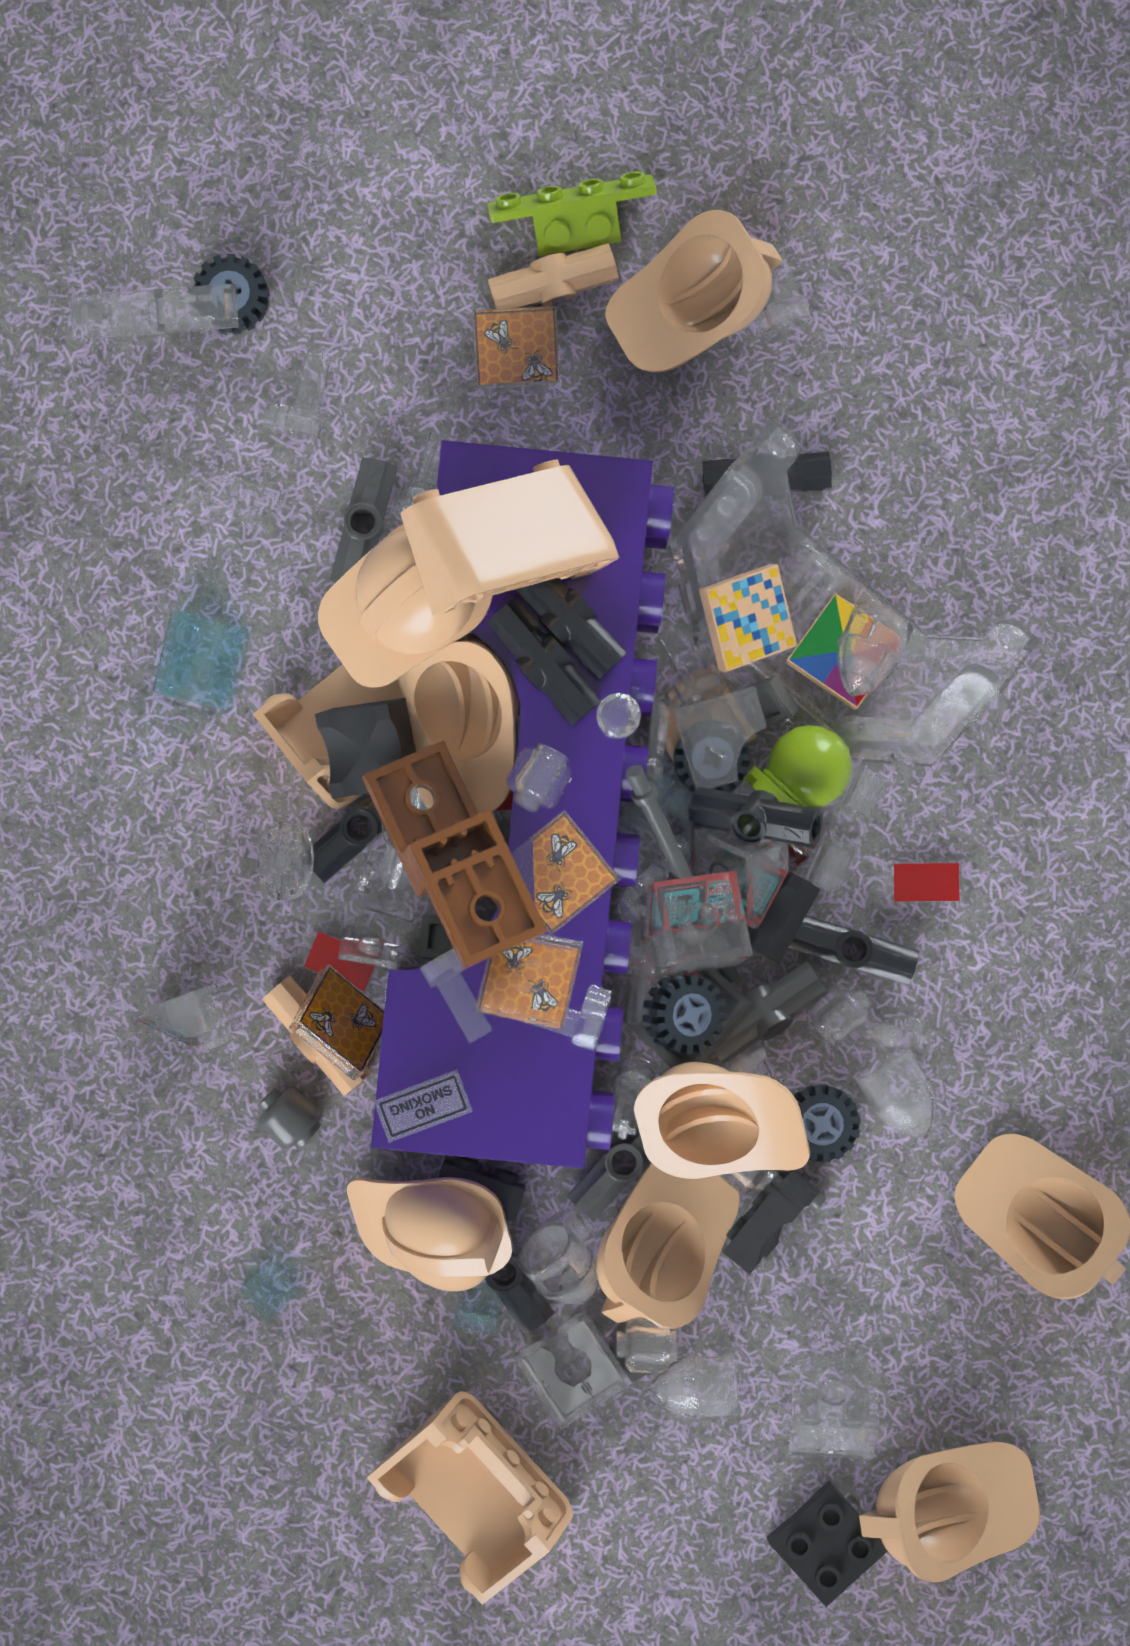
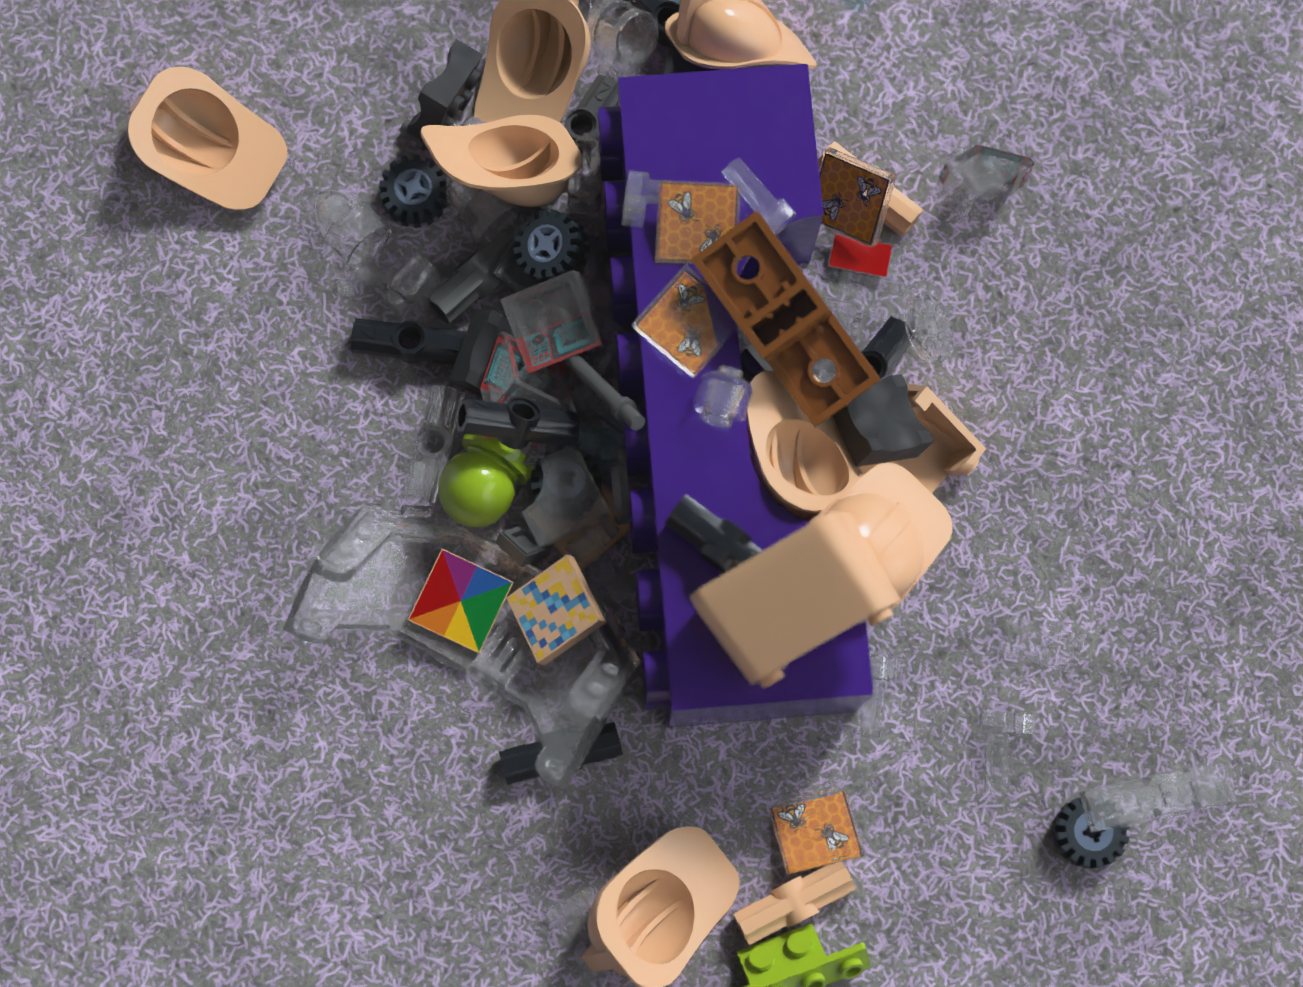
camera: 165 degrees right, 10 degrees down
(201, 660) = (1041, 492): clear light blue hinge -> none
(288, 1117) = (878, 117): dark grey head -> none
(369, 951) = (838, 261): clear bracket -> none
(370, 497) = (920, 665): dark grey piece -> none
(423, 1105) = (769, 102): clear tile -> none
(543, 661) = (737, 499): black piece -> none
(616, 723) = (660, 475): clear wheel -> none
(871, 650) = (438, 597): clear helmet -> none
(918, 882) = (361, 413): red tile -> none

